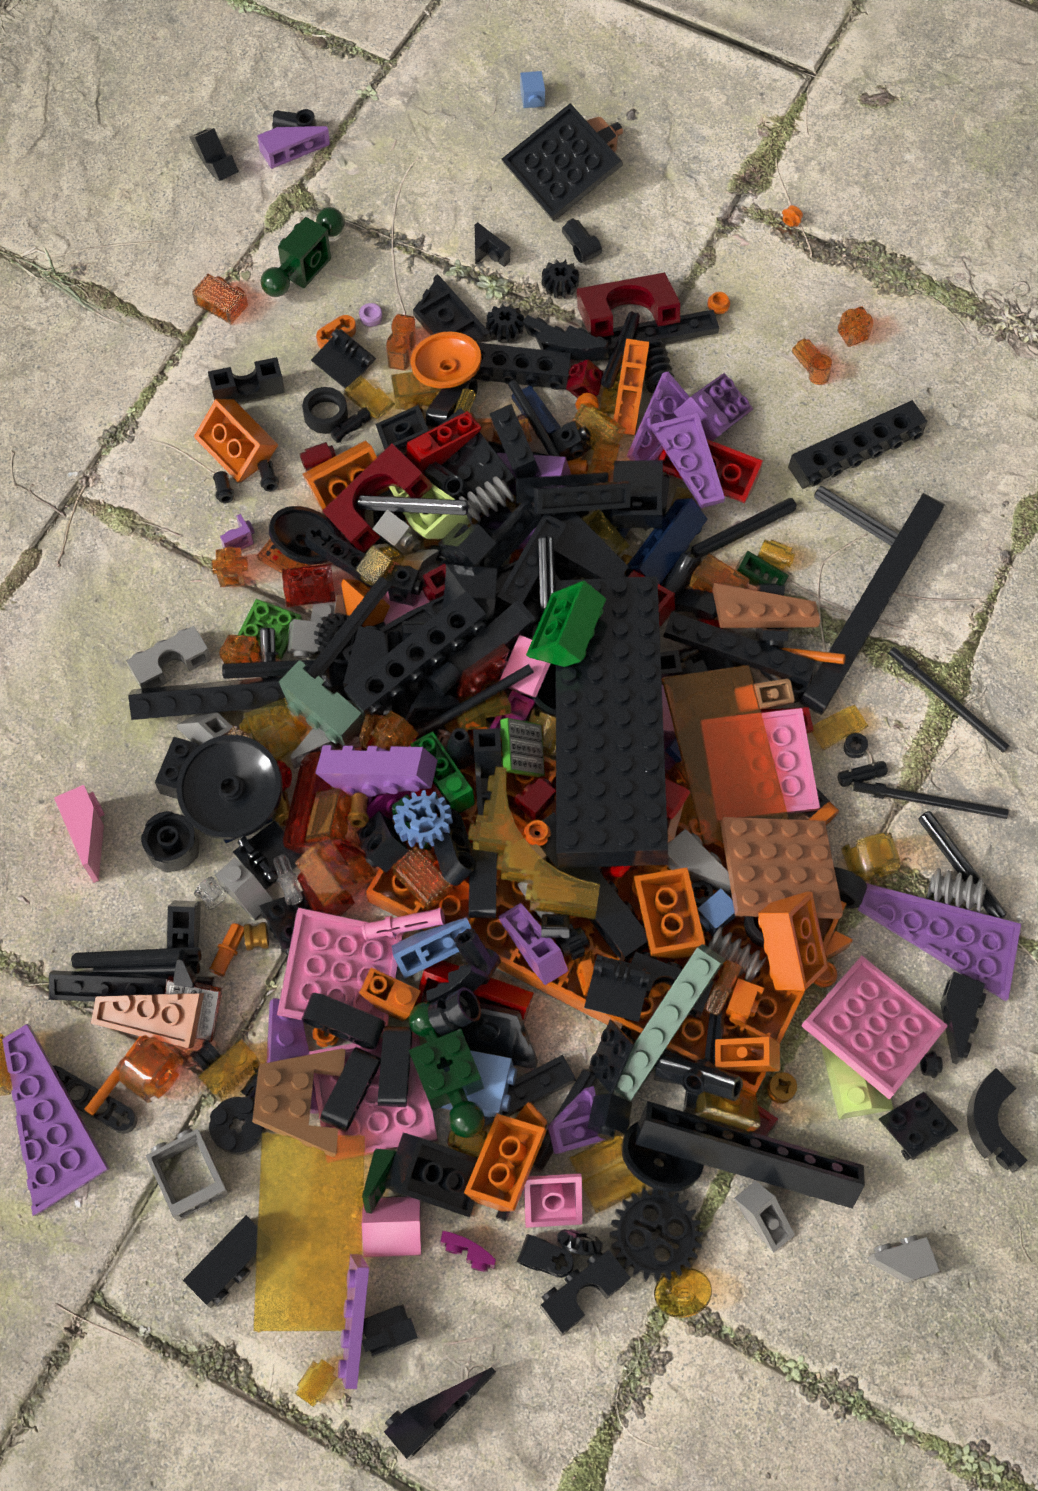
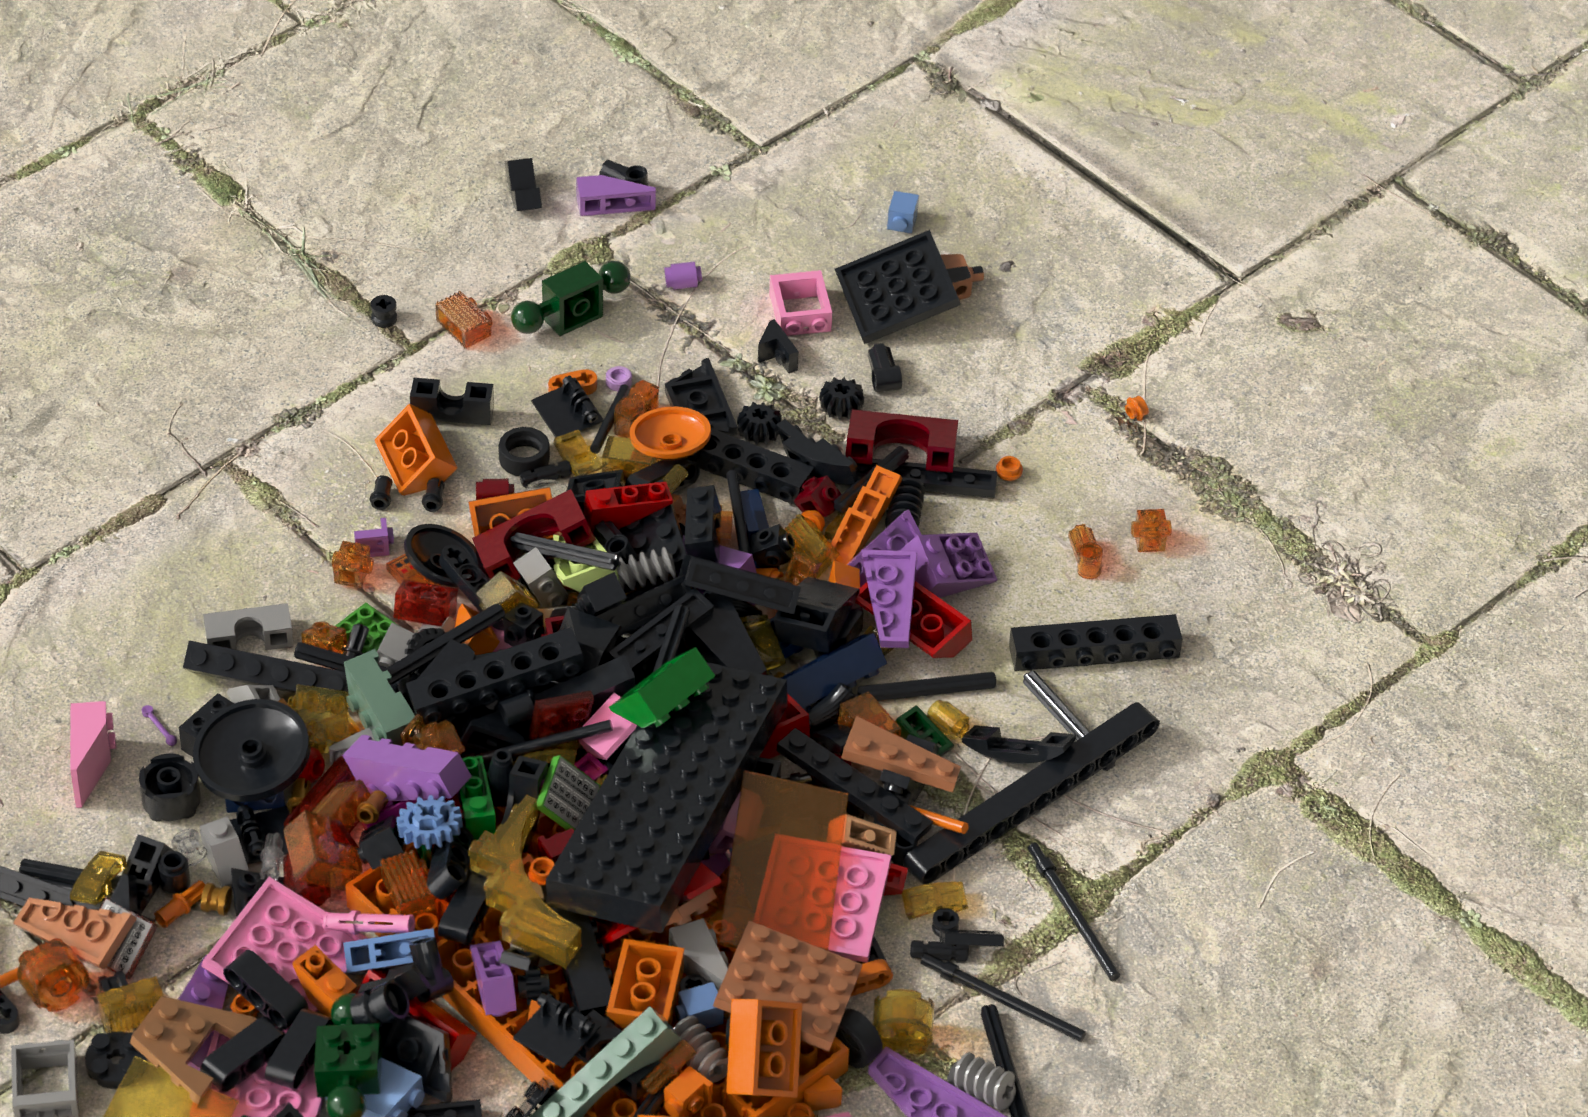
camera: 20 degrees right, 20 degrees down
(115, 767) = (147, 711): none -> medium lavender hinge
(147, 316) = (383, 311): none -> black wheel
(148, 959) = (96, 877): none -> clear yellow slope
(210, 925) = (174, 872): none -> black brick
(382, 201) = (682, 275): none -> medium lavender brick
(382, 357) = (608, 421): none -> black bar
(480, 183) = (800, 286): none -> bright pink window
(641, 449) = (845, 574): none -> orange slope
(844, 565) = (988, 742): none -> black slope
(885, 755) = (971, 937): none -> black tile

